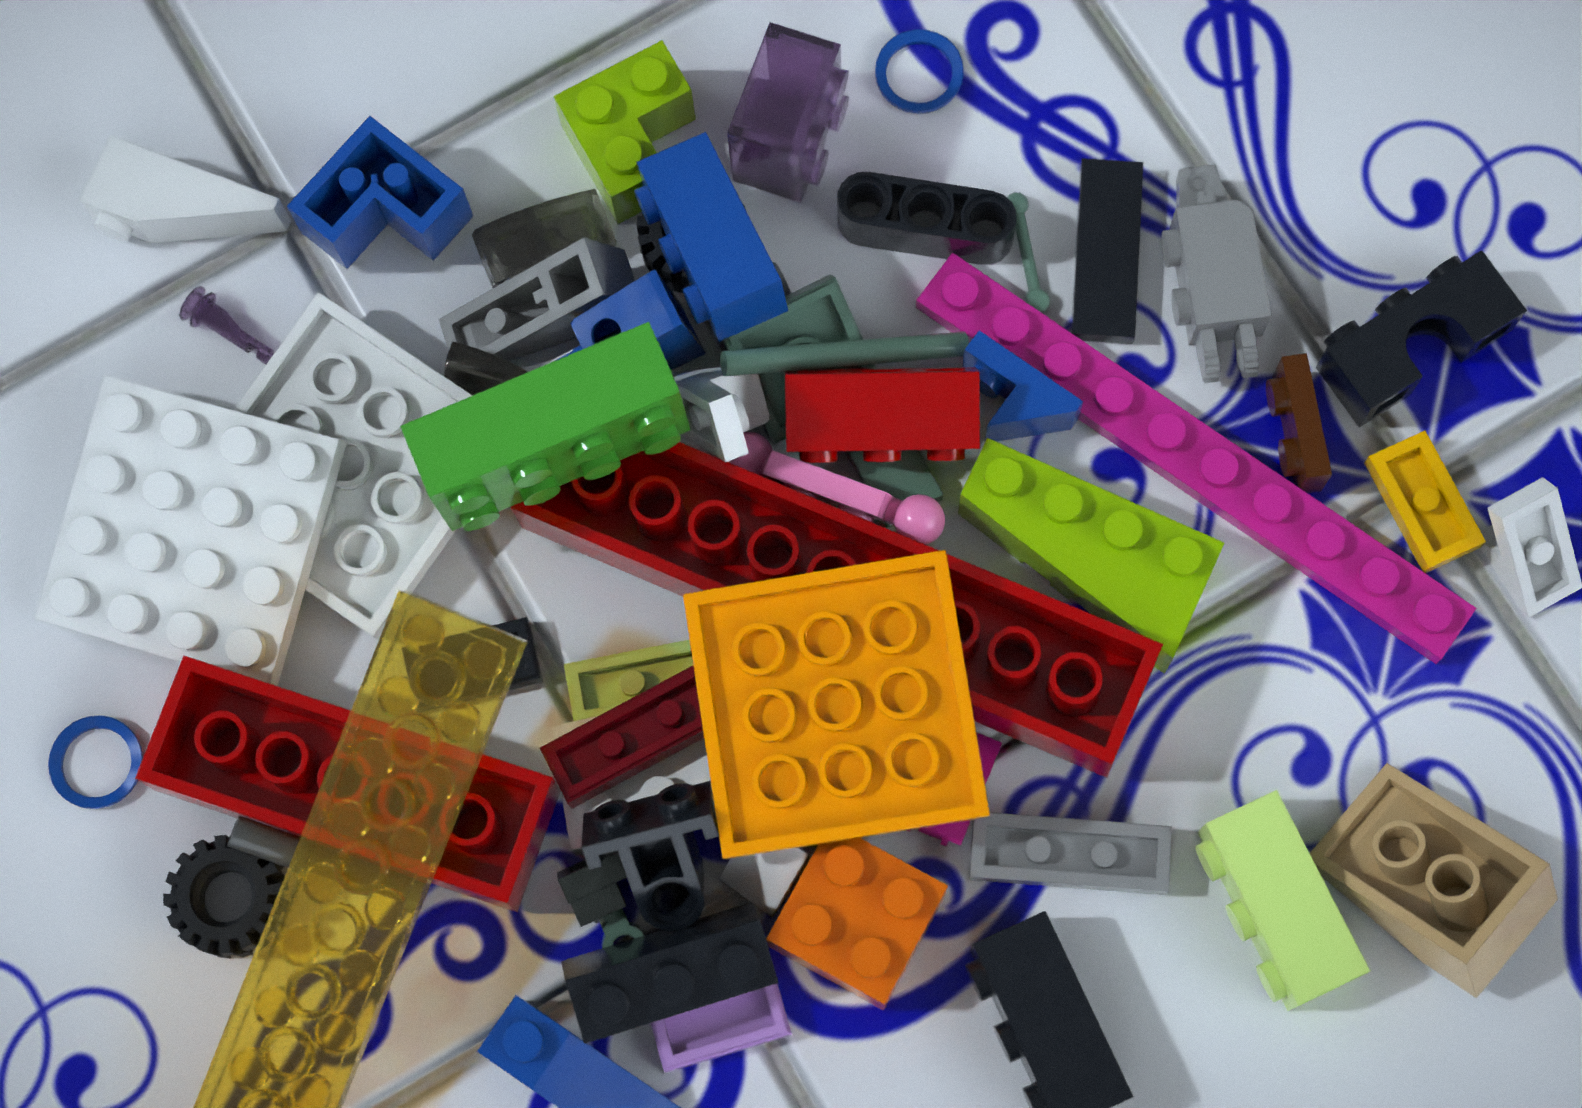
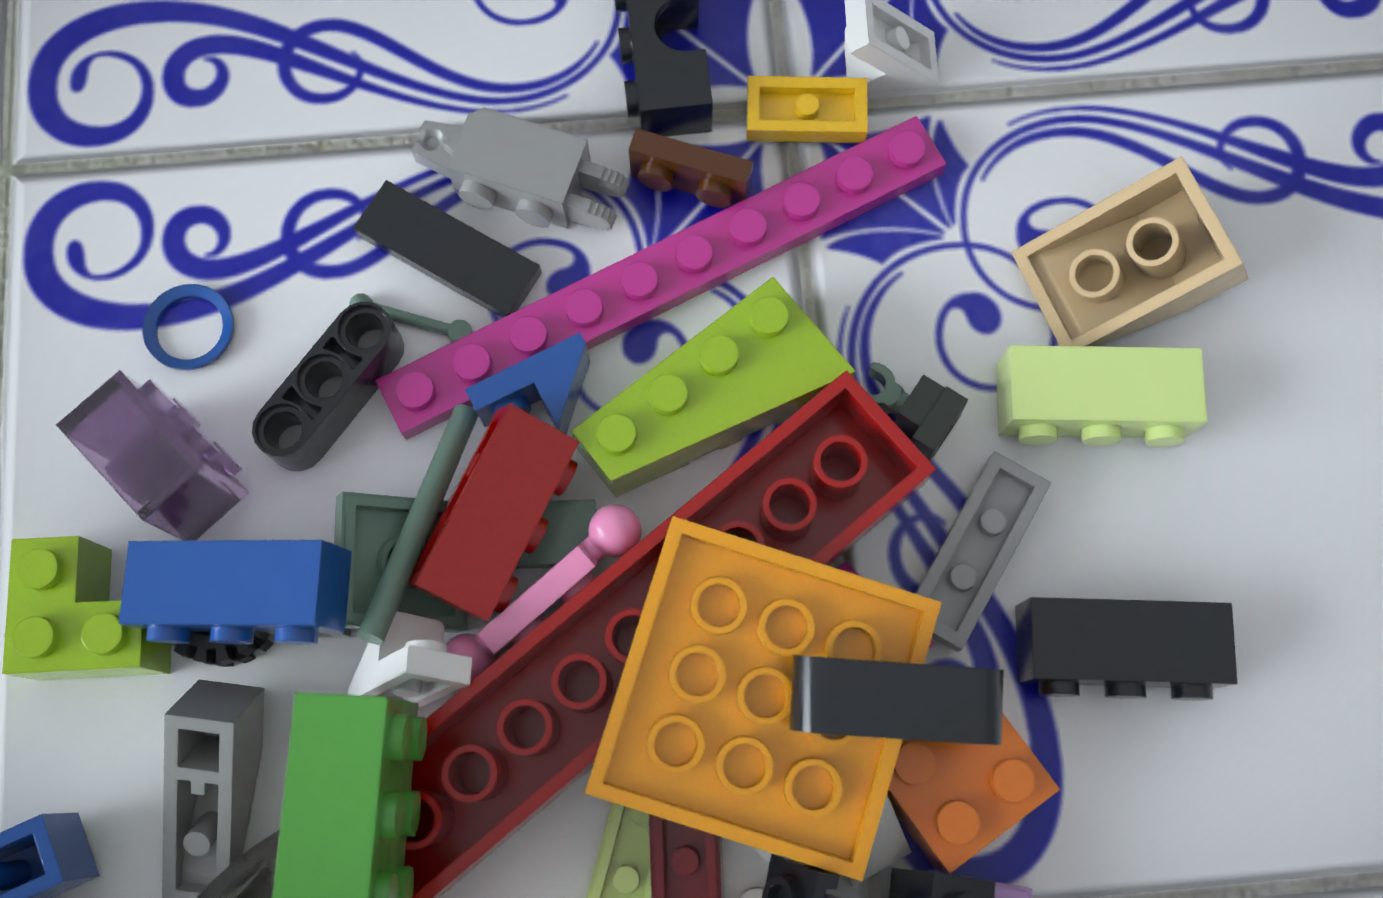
camera: 70 degrees left, 0 degrees up
(538, 232) = (133, 755): clear smoke slope -> none
(637, 303) = (267, 705): blue torso -> none
(883, 808) = (896, 700): none -> black beam
(1177, 747) = (923, 415): none -> pearl dark grey piece

